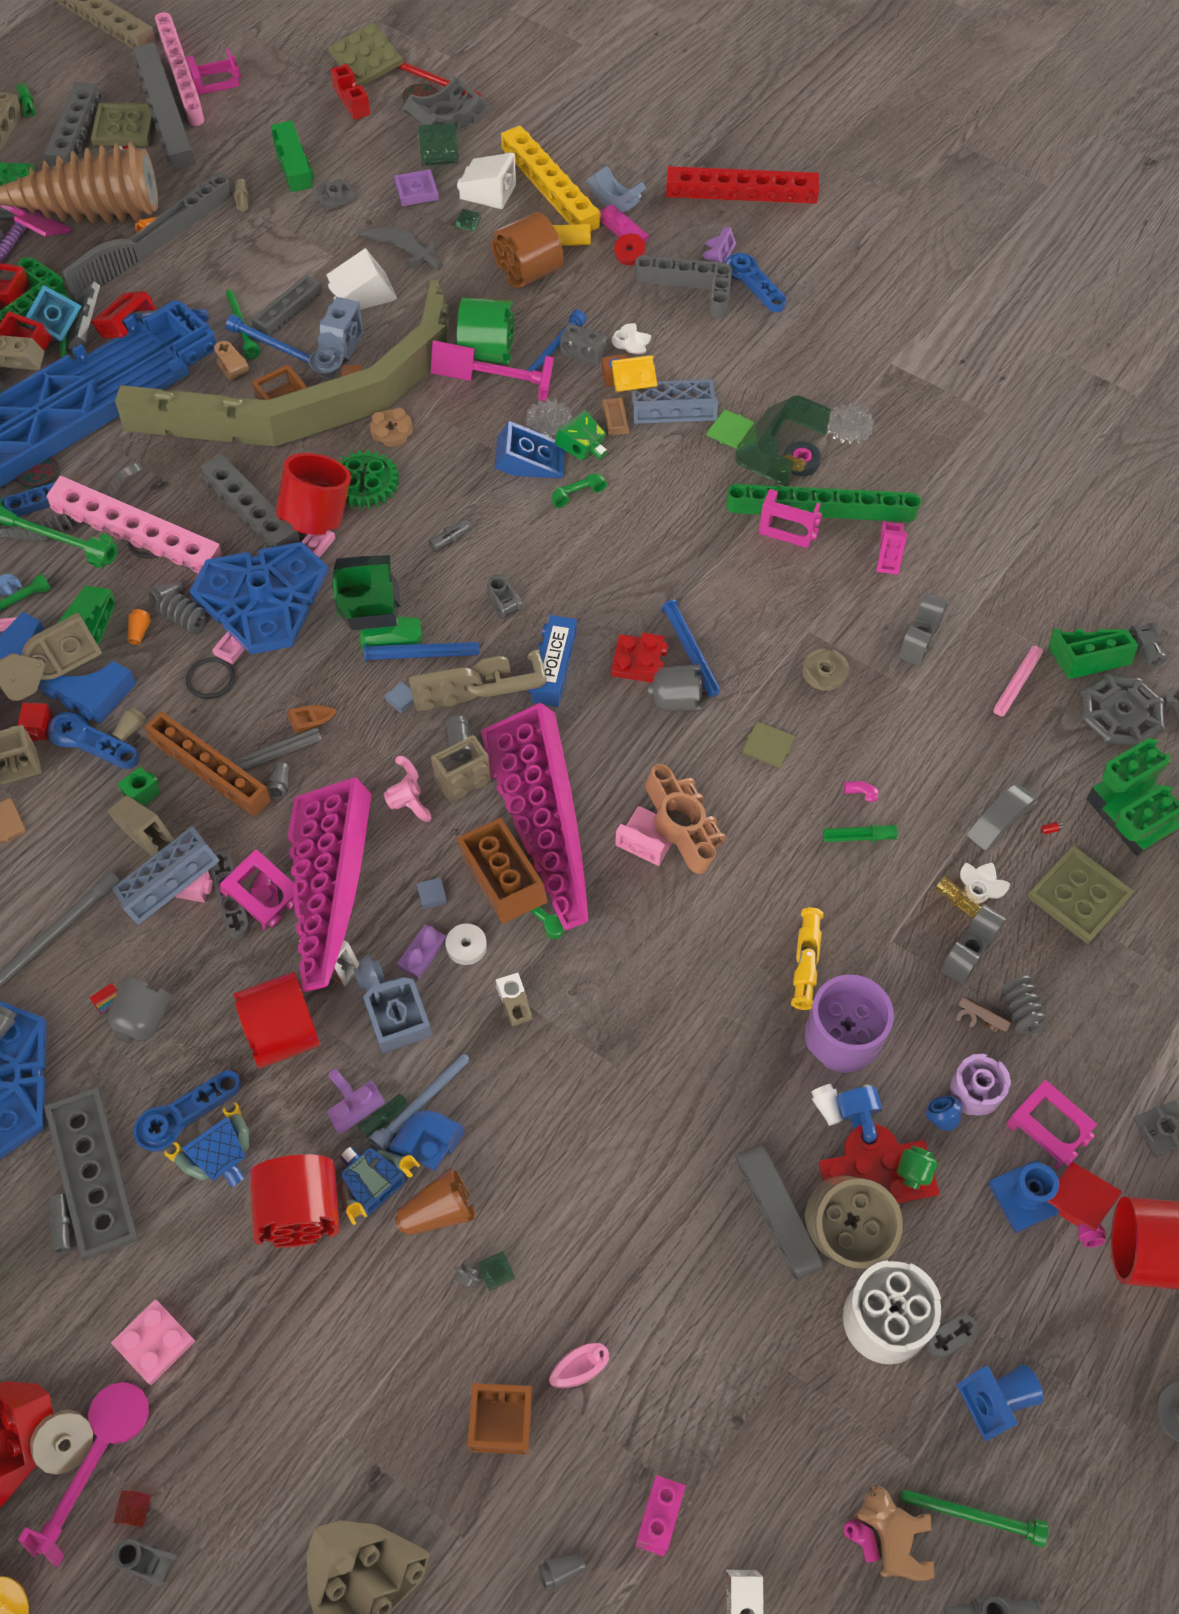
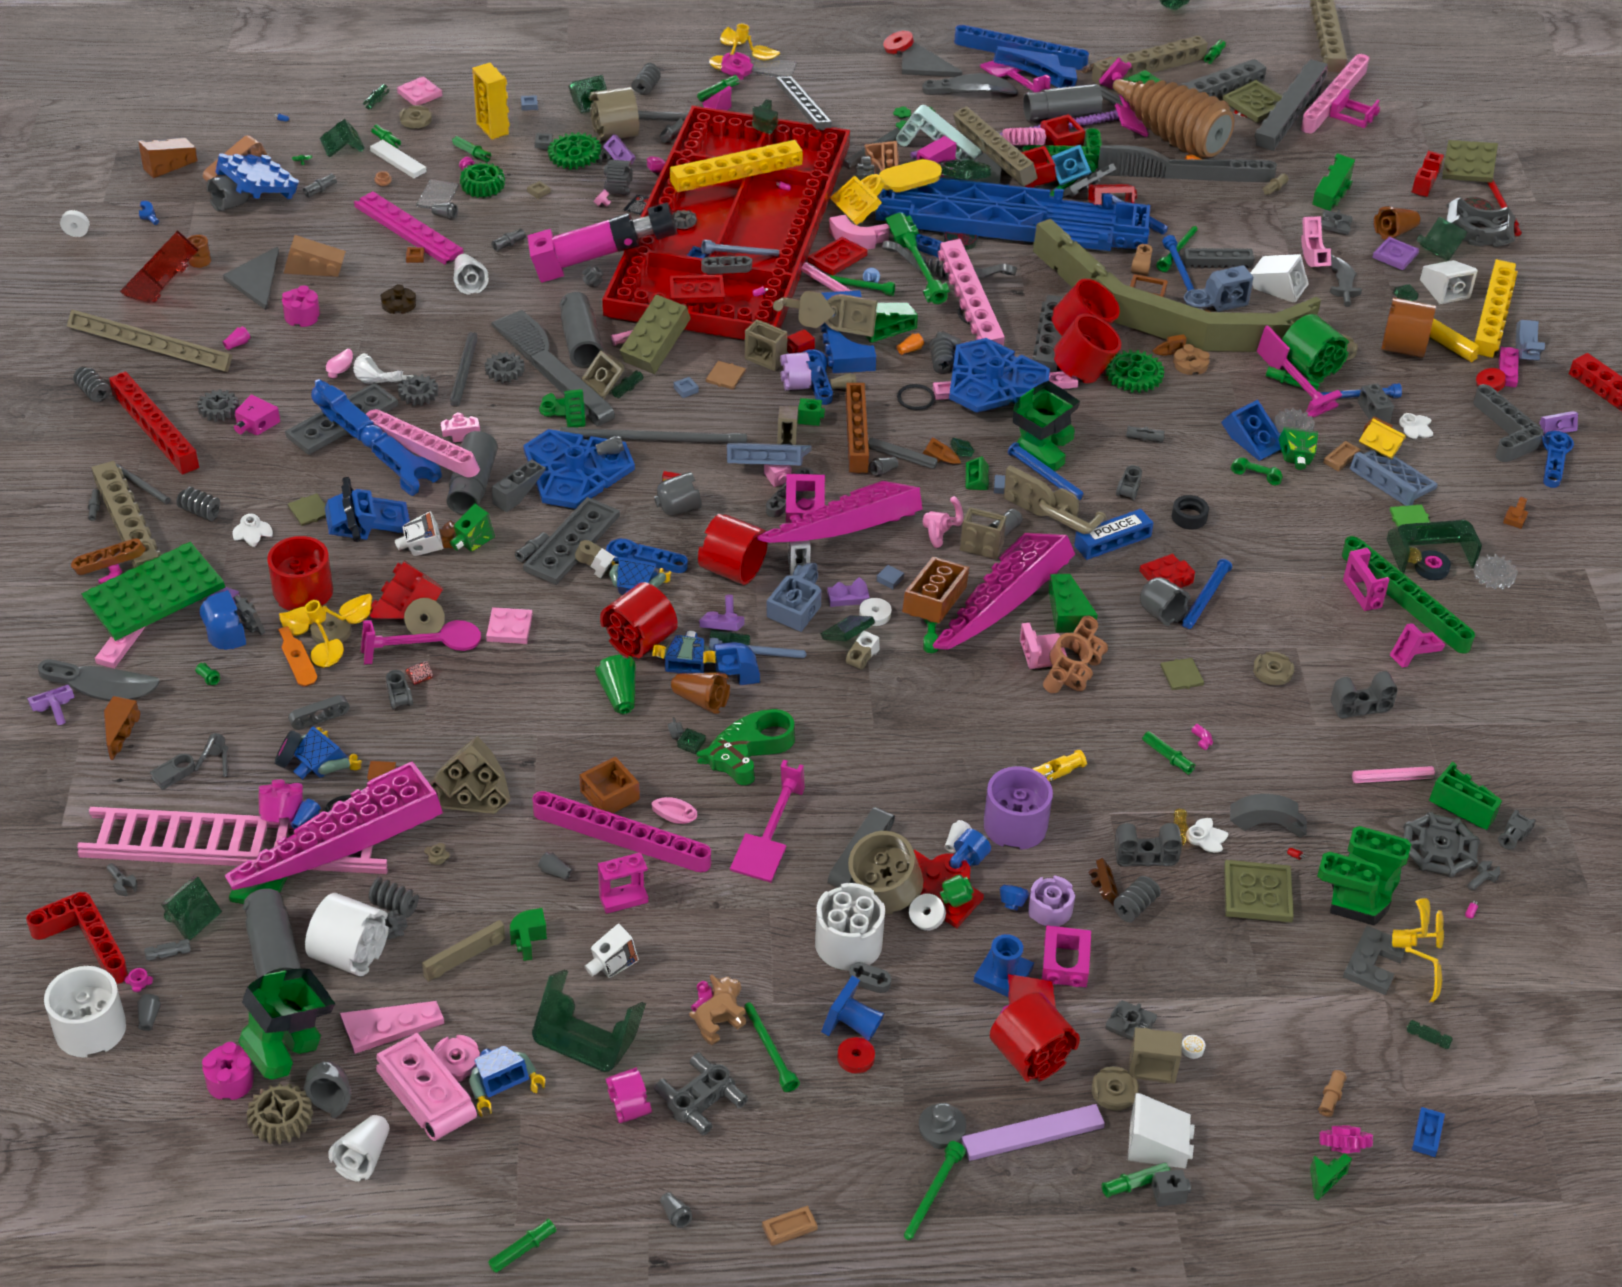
camera: 50 degrees right, 15 degrees down
(74, 757) = (796, 371): none -> lavender brick
(144, 1169) = (594, 557): none -> leg
(261, 453) = (1085, 298): none -> red brick
(322, 694) = (962, 447): none -> clear green plate
(350, 233) = (1312, 243): none -> bright pink arch
(358, 1290) = (618, 679): none -> green cone
(362, 426) = (1171, 345): none -> dark orange plate
(366, 709) = (977, 474): none -> green slope
(383, 159) = (1395, 221): none -> dark orange cone
(475, 990) = (848, 628): none -> clear green tile
(482, 379) = (1283, 376): none -> green axle
(539, 1235) = (744, 739): none -> green animal
(552, 1453) = (621, 831): none -> dark pink beam
(578, 593) = (1188, 521): none -> black tyre
(612, 768) = (1068, 603): none -> green wedge
(708, 1320) = (759, 855): none -> dark pink piece
(795, 358) = (1516, 515): none -> dark orange plate
(921, 1211) = (929, 921): none -> white piece
(1053, 1423) = (859, 1063): none -> red piece

